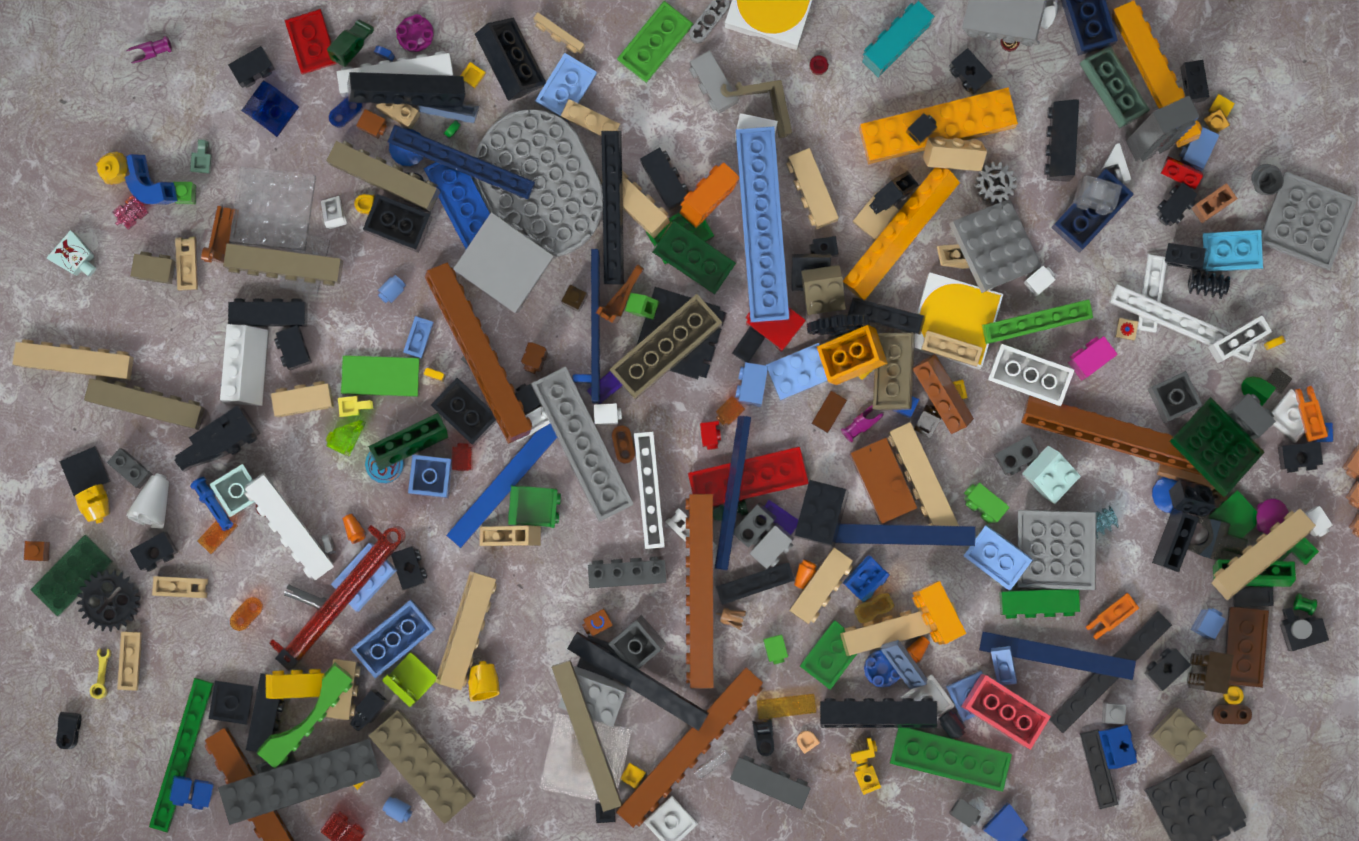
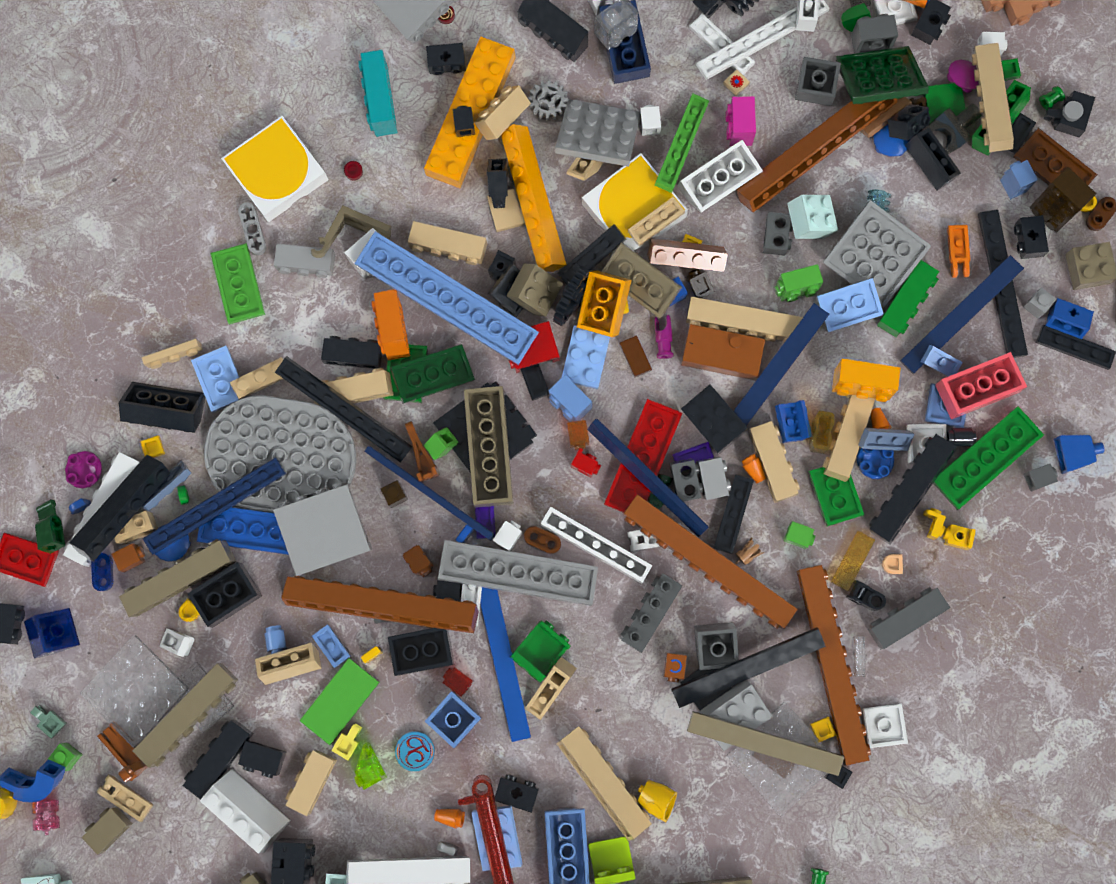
camera: 50 degrees left, 5 degrees down
(380, 314) = (288, 663): none -> tan brick
(408, 441) = (411, 717): dark green brick -> none

